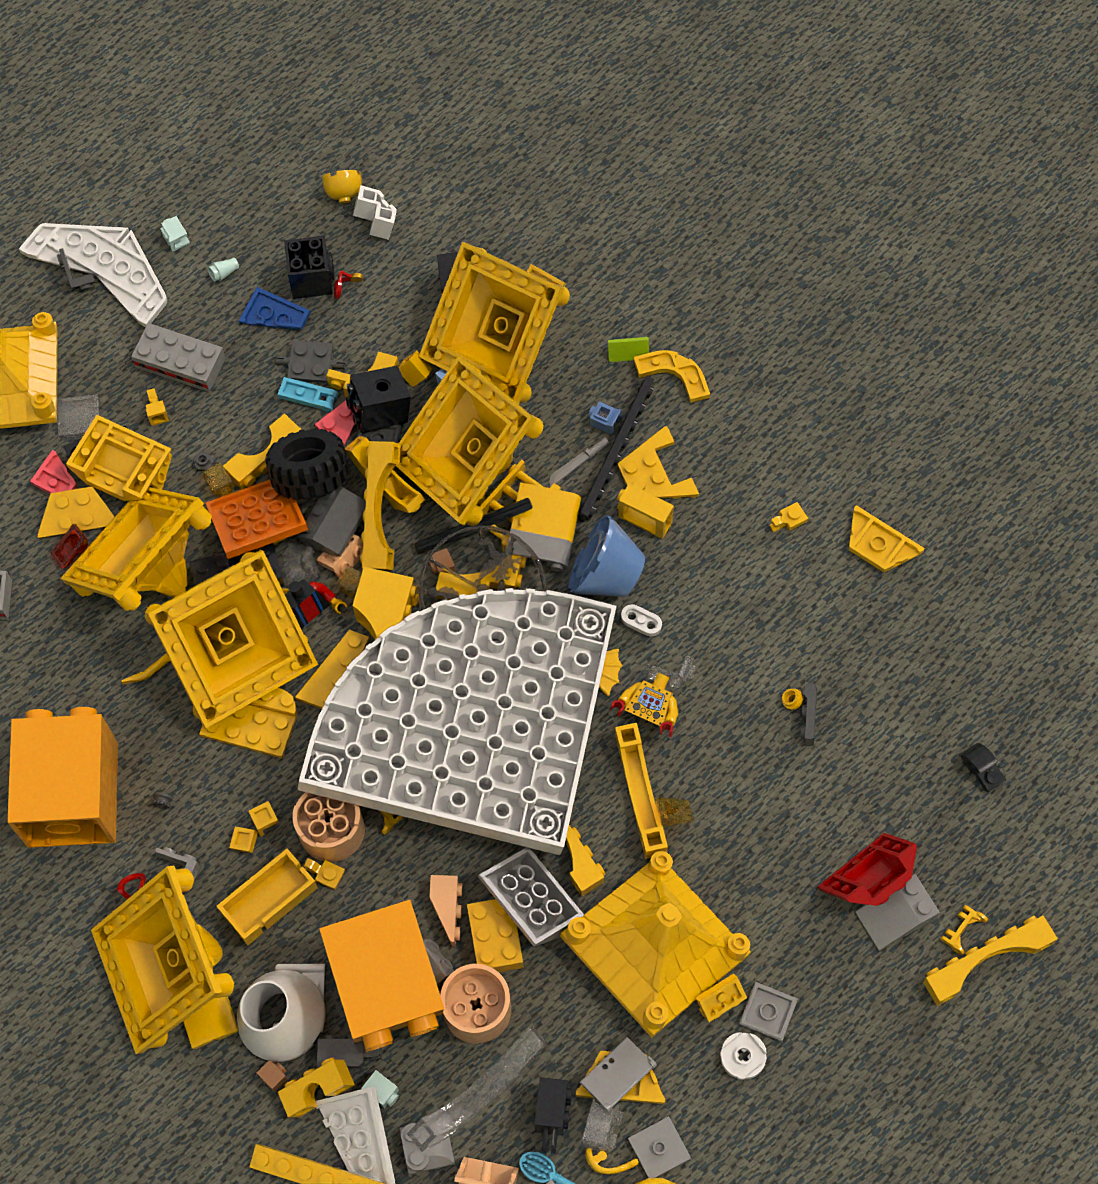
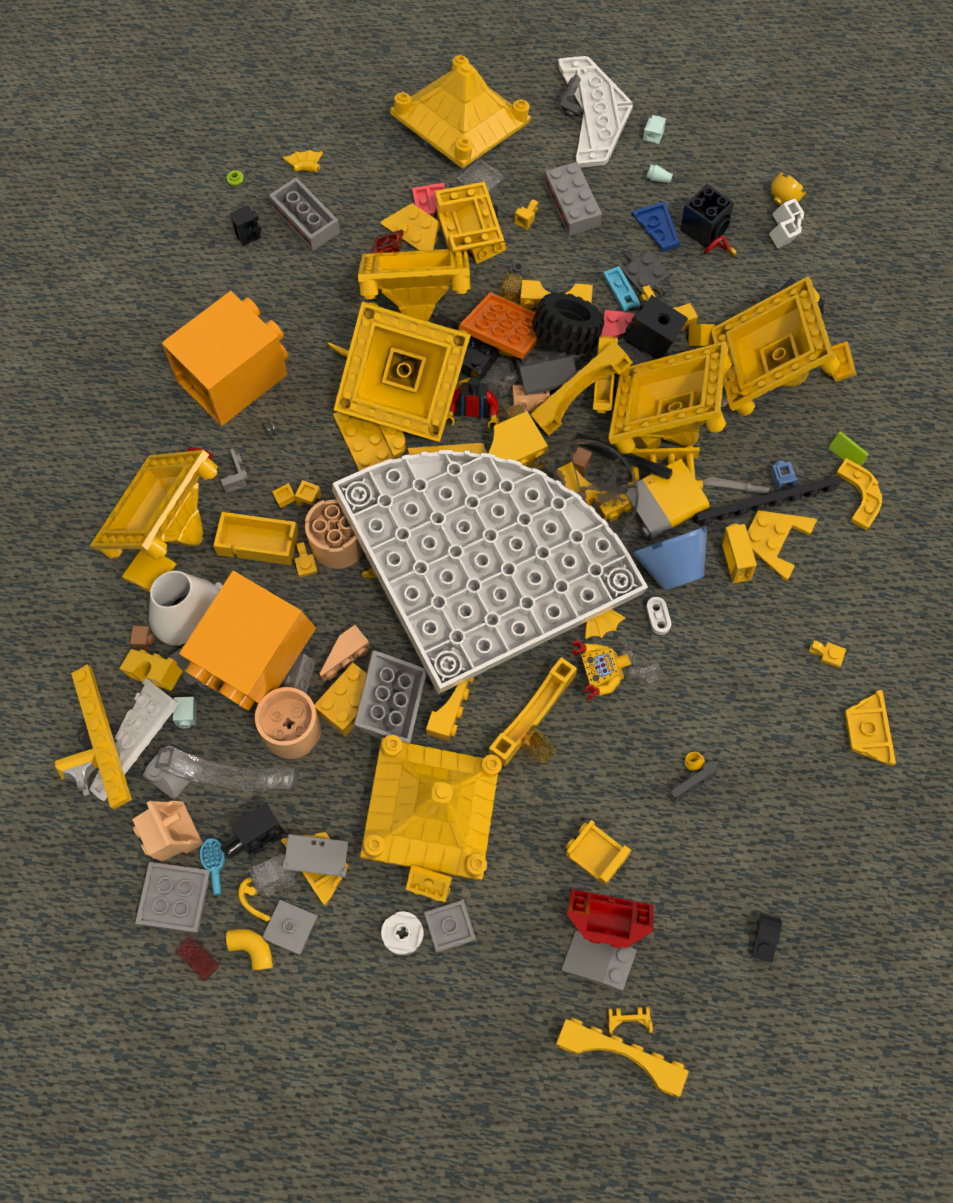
camera: 50 degrees right, 0 degrees up
(806, 840) = (597, 852): none -> yellow panel

